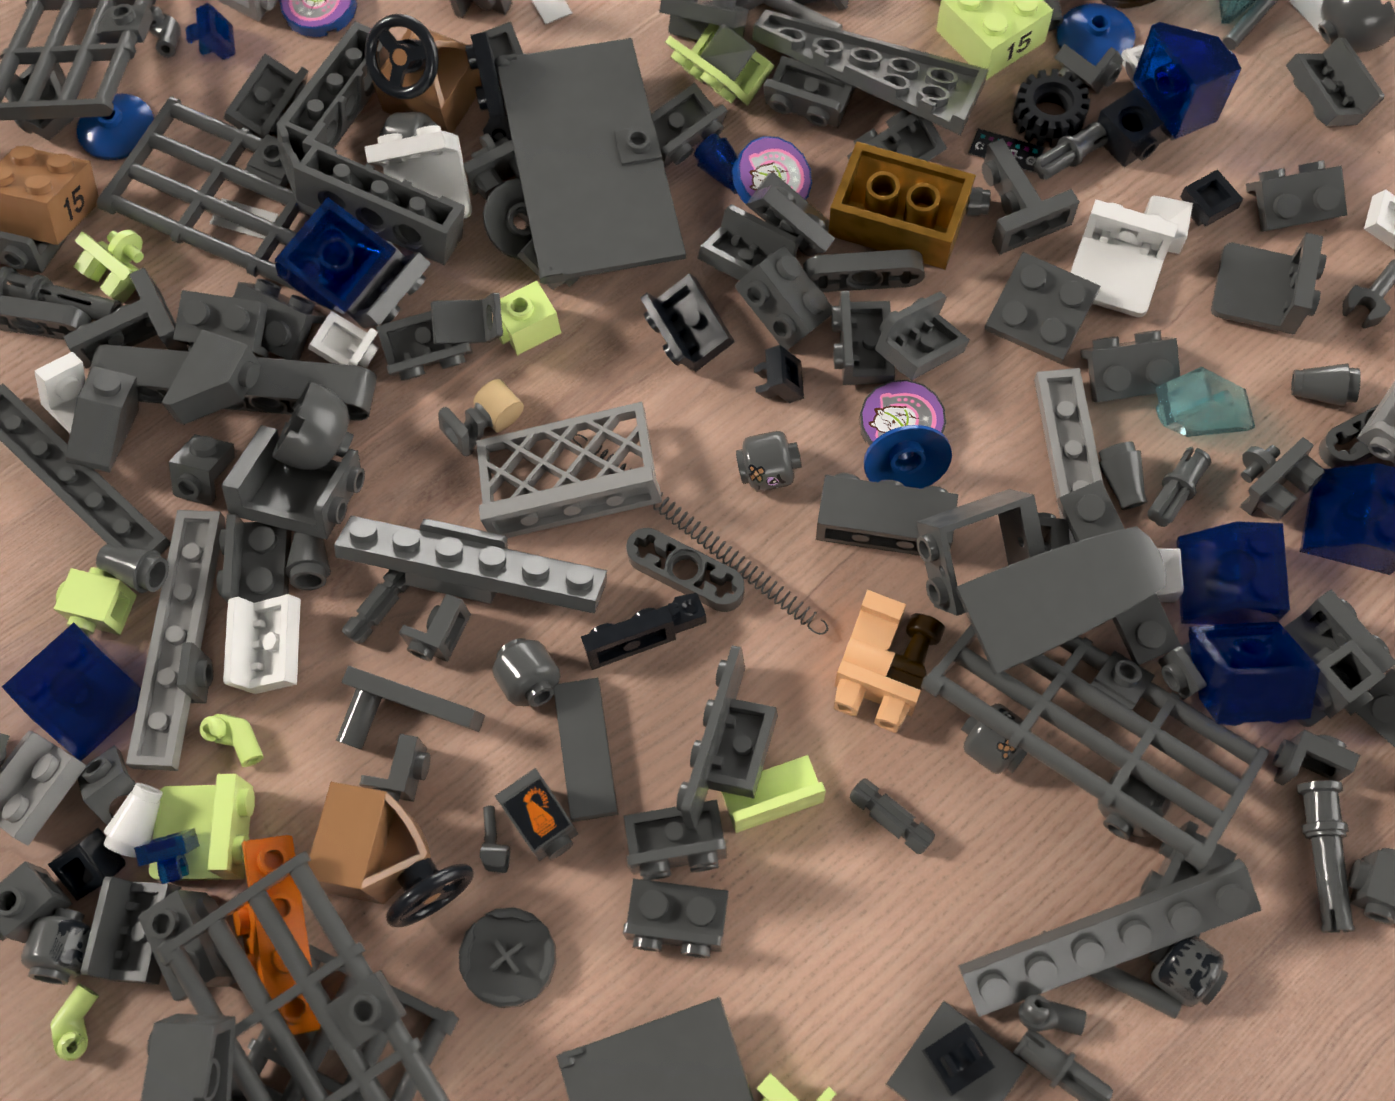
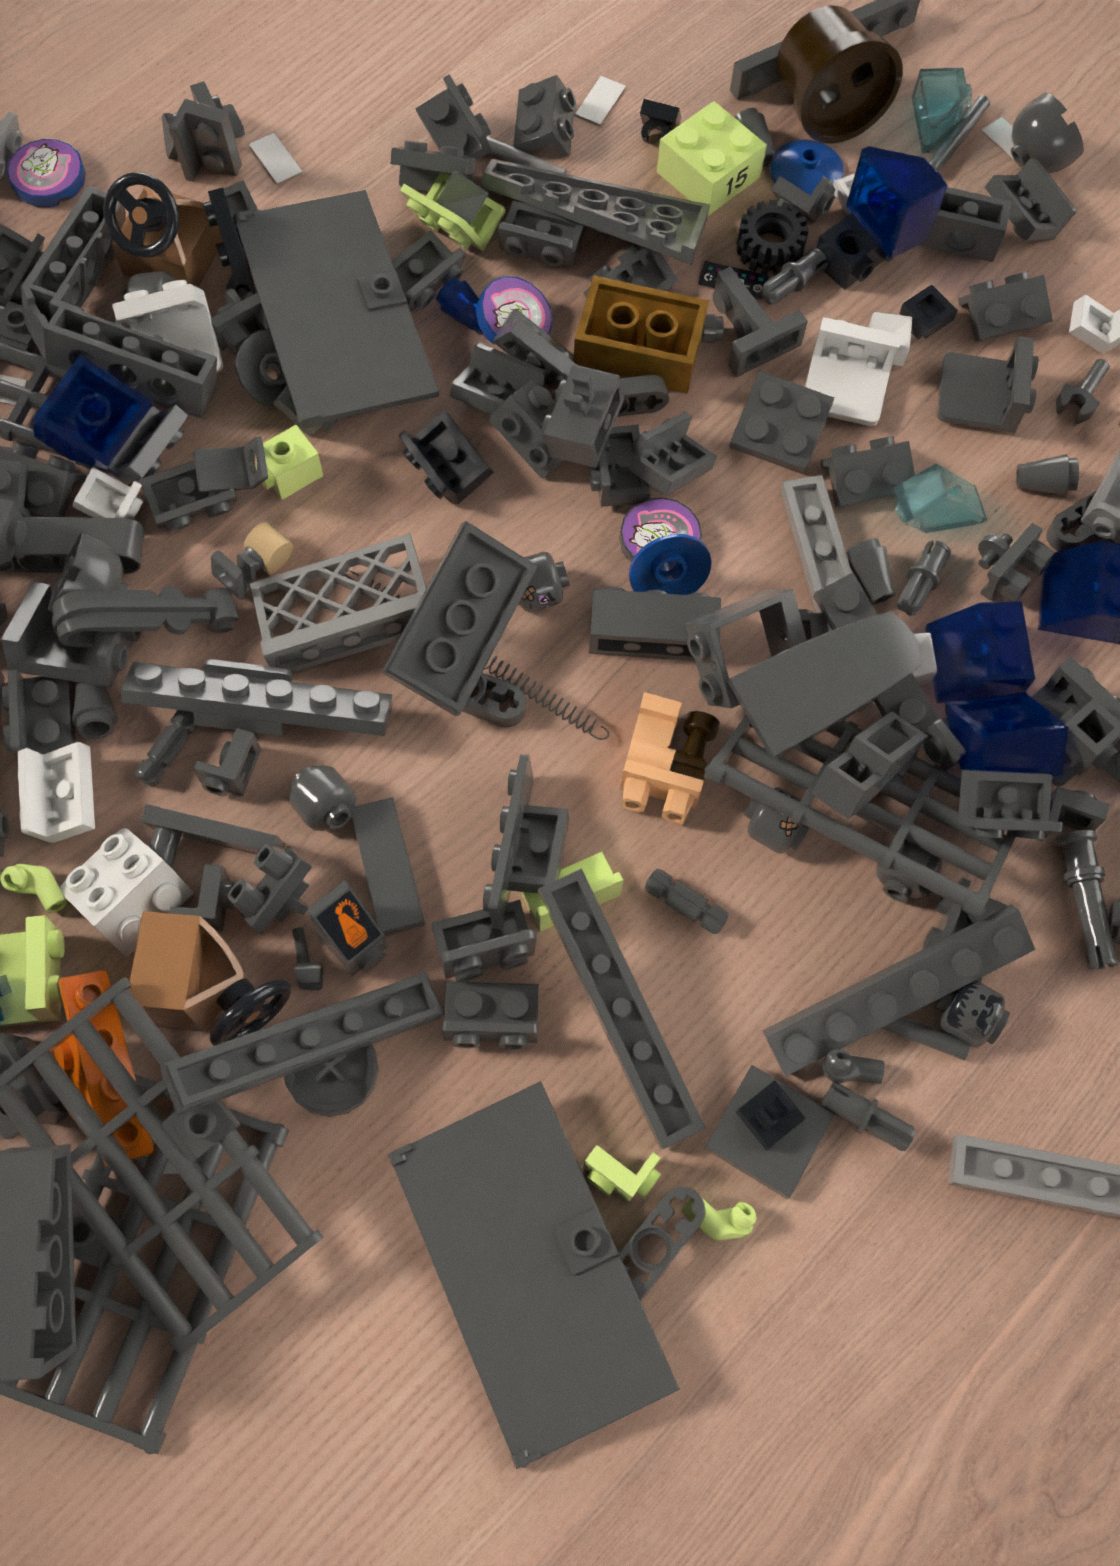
camera: 15 degrees left, 0 degrees up
(319, 746) = (122, 884): none -> white bracket
(361, 464) = (138, 610): none -> dark grey piece
(470, 768) = (276, 892): none -> dark grey hips
(476, 933) = (299, 1043): none -> dark grey tile
(643, 631) = (432, 750): black hinge -> none
(683, 497) = (460, 619): none -> dark grey tile
(782, 375) = (543, 501): black tile -> none
(810, 930) = (621, 1009): none -> dark grey plate
(831, 291) = (583, 415): none -> dark grey brick
(1098, 690) = (868, 764): none -> dark grey slope
(1245, 746) = (1006, 802): none -> dark grey bracket
(1265, 106) = (969, 224): none -> dark grey brick

